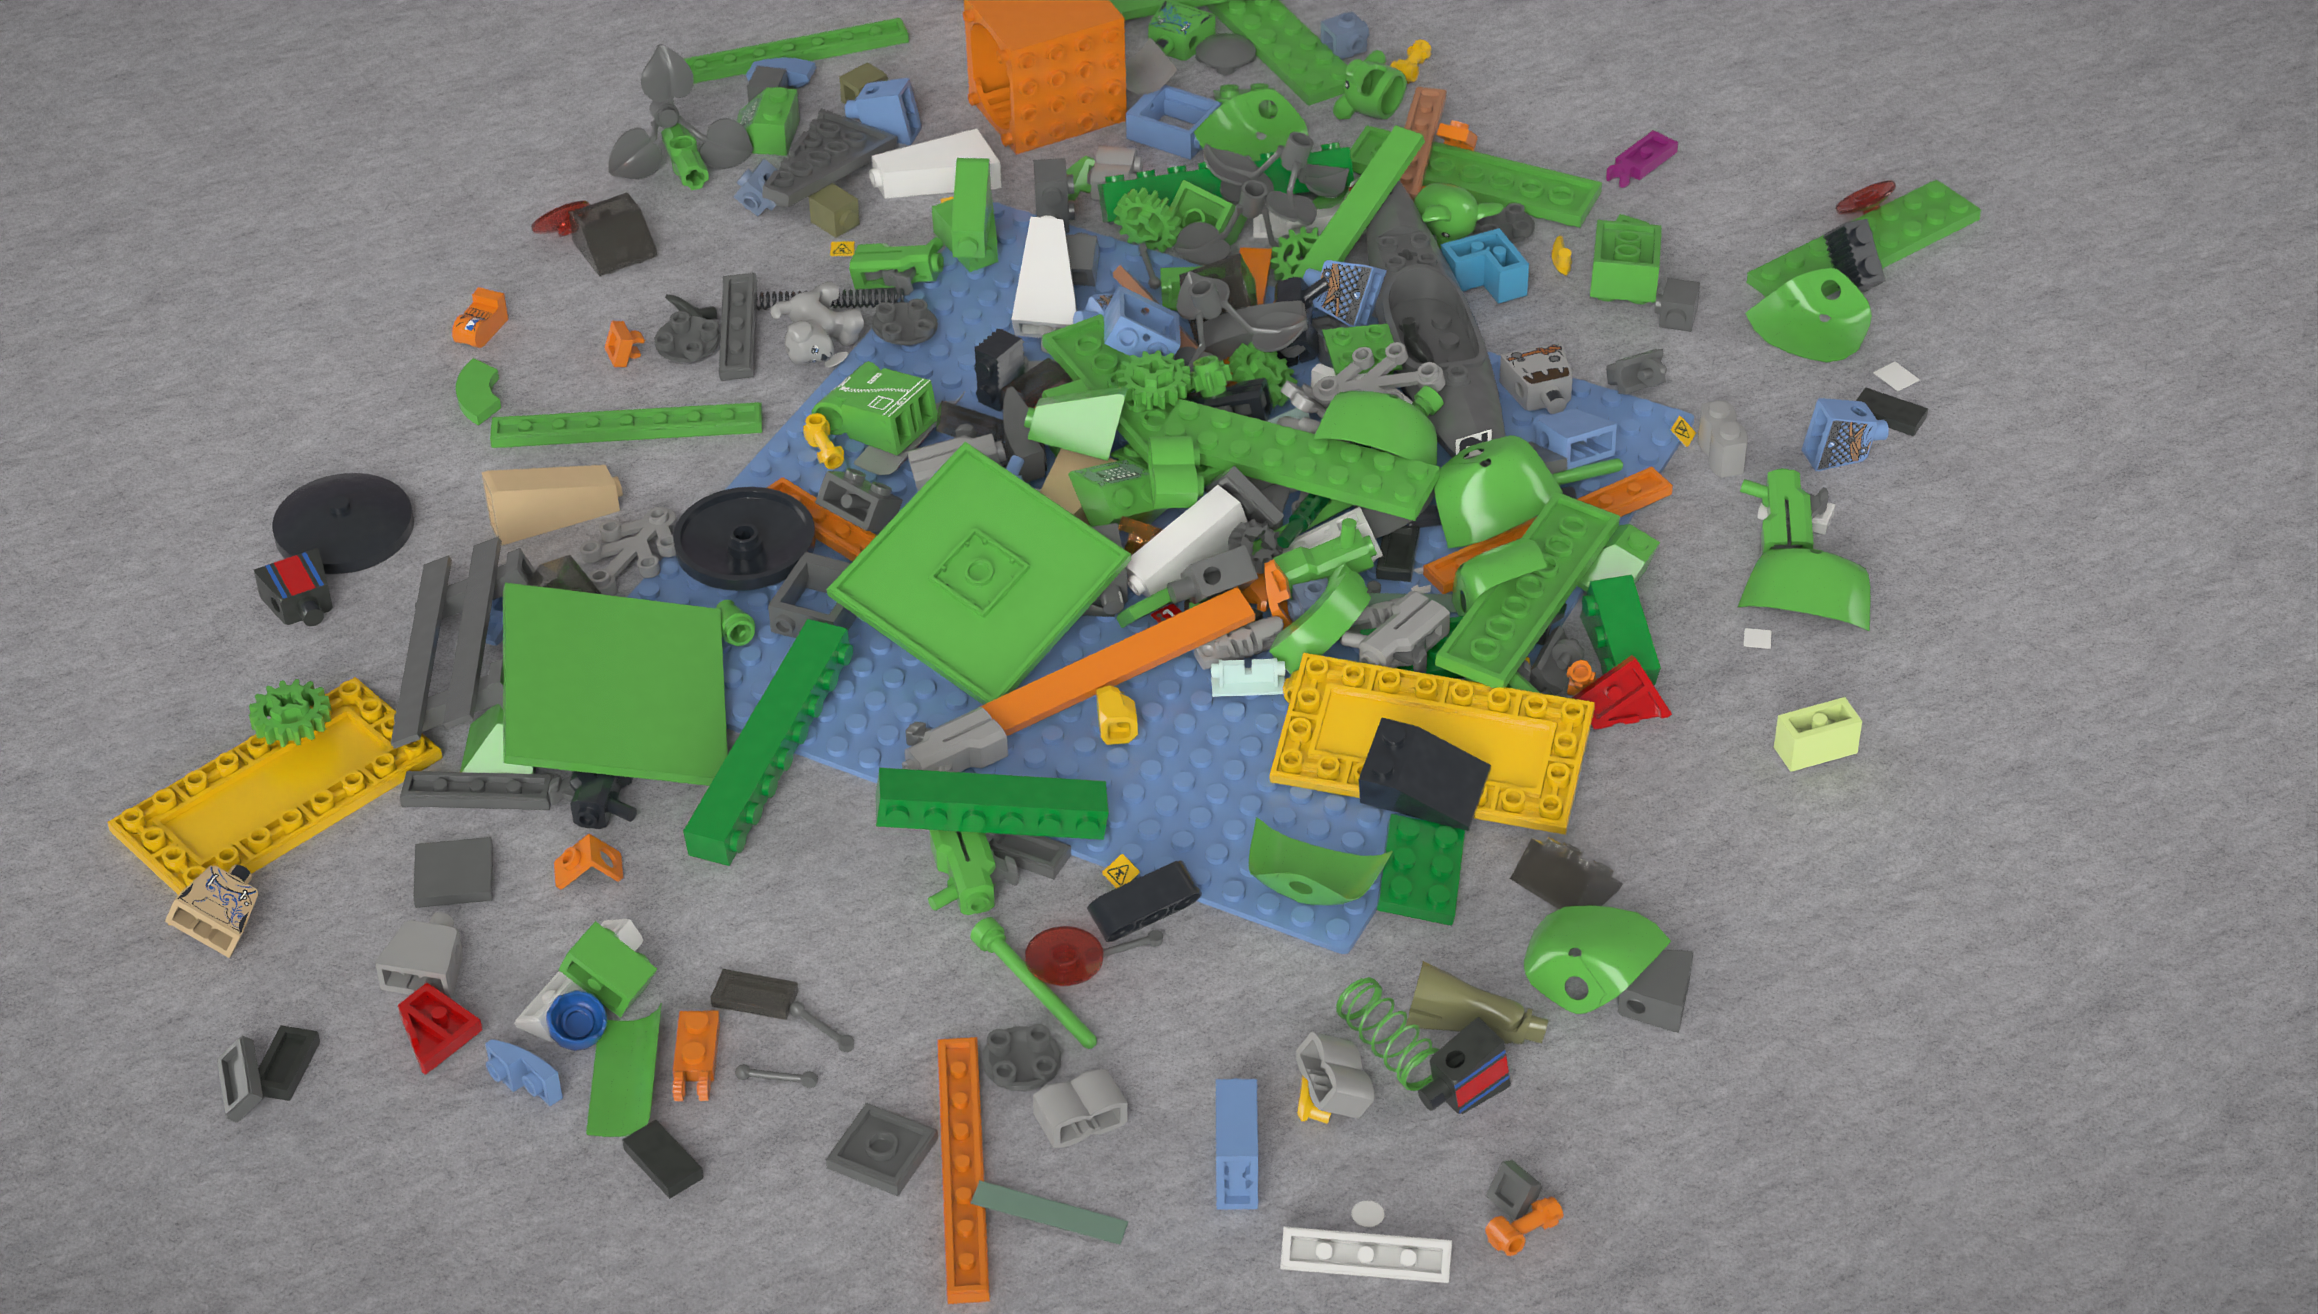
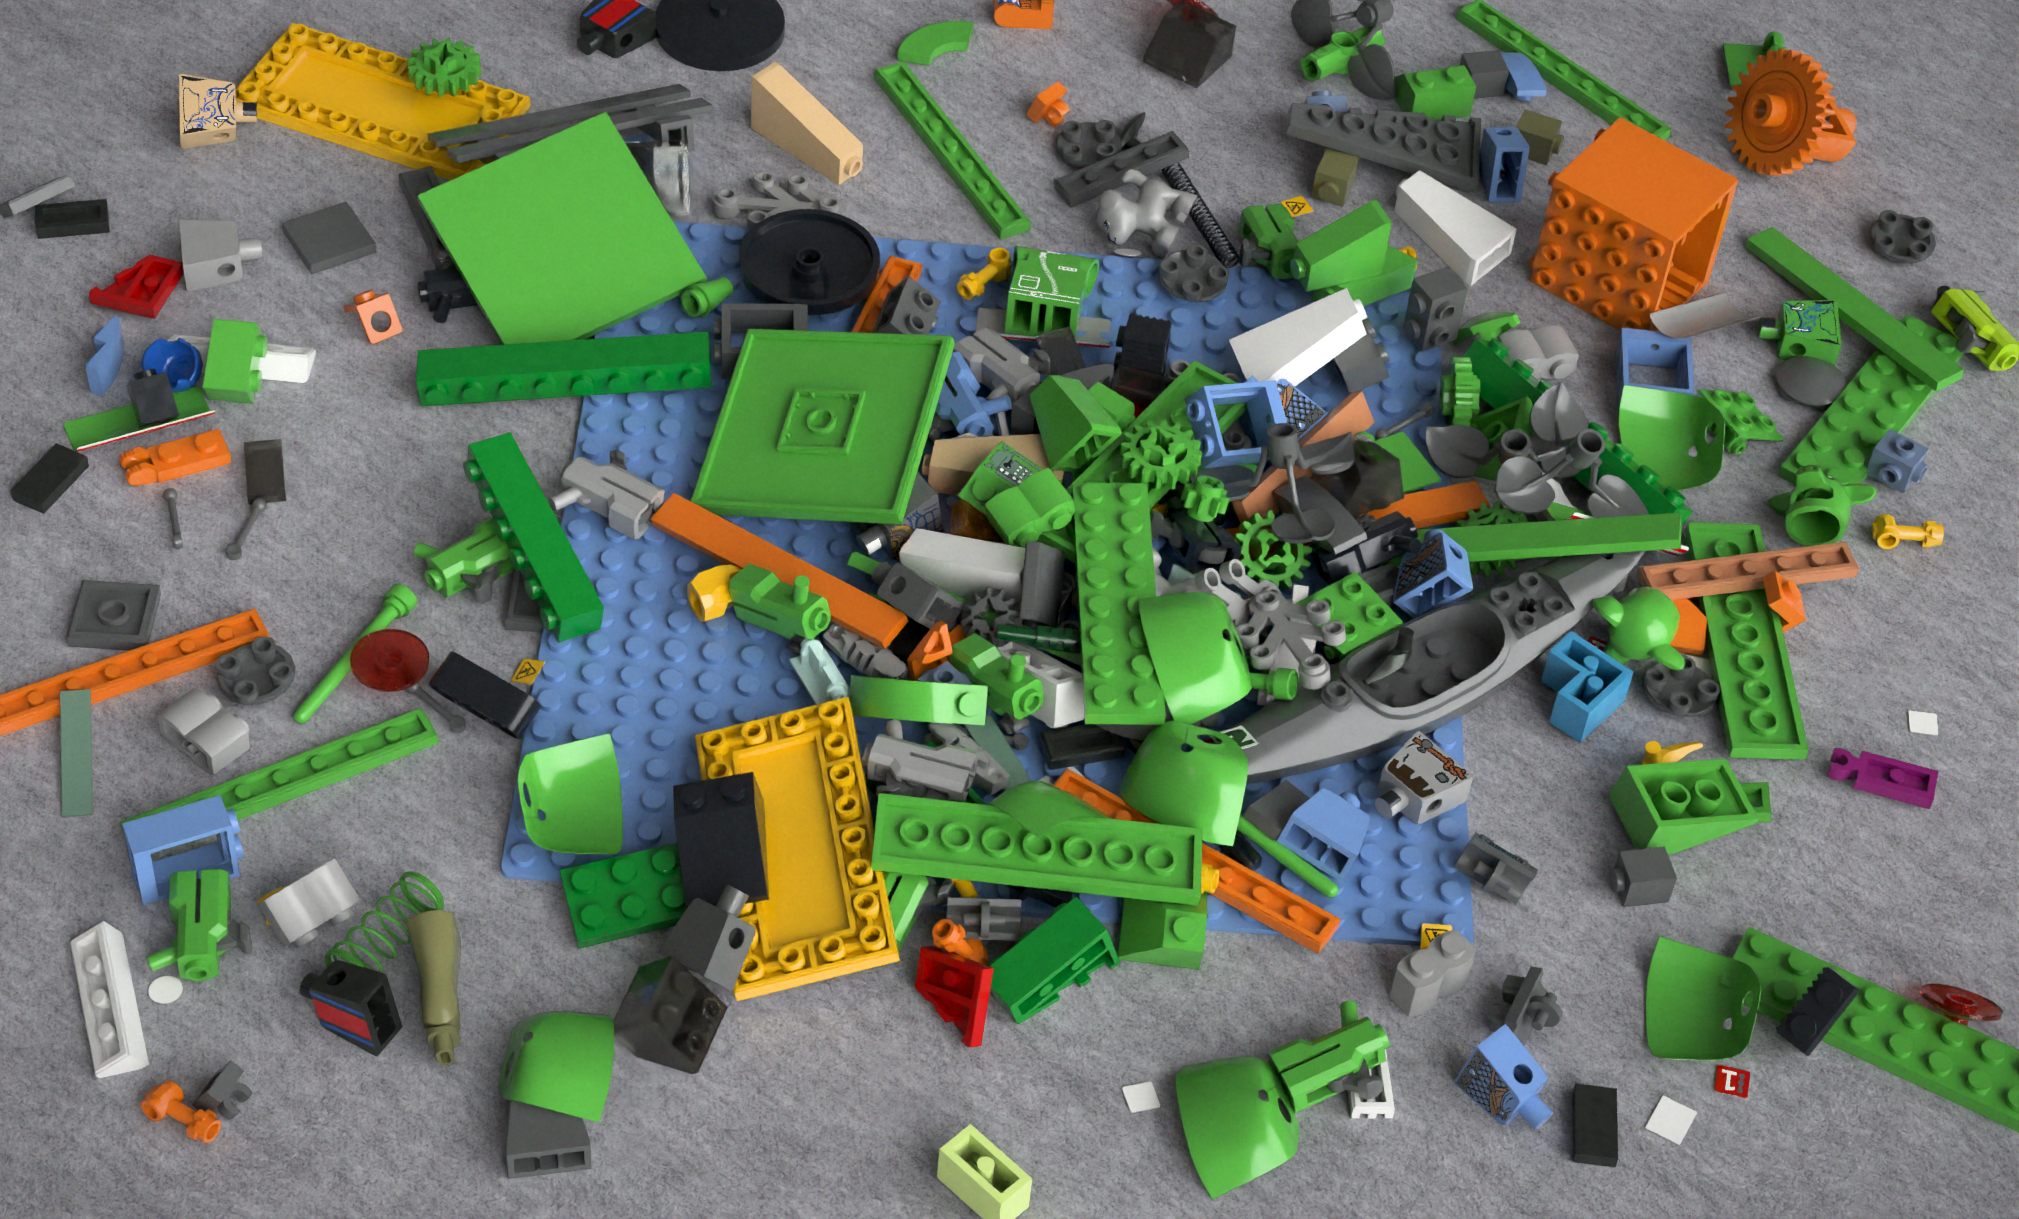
camera: 60 degrees right, 5 degrees up
(620, 1043) = (152, 398): none -> black brick
(1163, 1078) = (317, 766): none -> bright green tile
(1170, 670) = (779, 606): none -> bright green piece
(1318, 1159) = (204, 925): none -> bright green piece
(1515, 815) = (712, 938): none -> dark grey torso
(1592, 127) = (1923, 722): none -> white sticker
(1778, 401) = (1530, 1006): none -> dark grey hips
(1877, 335) = (1732, 1081): none -> red sticker

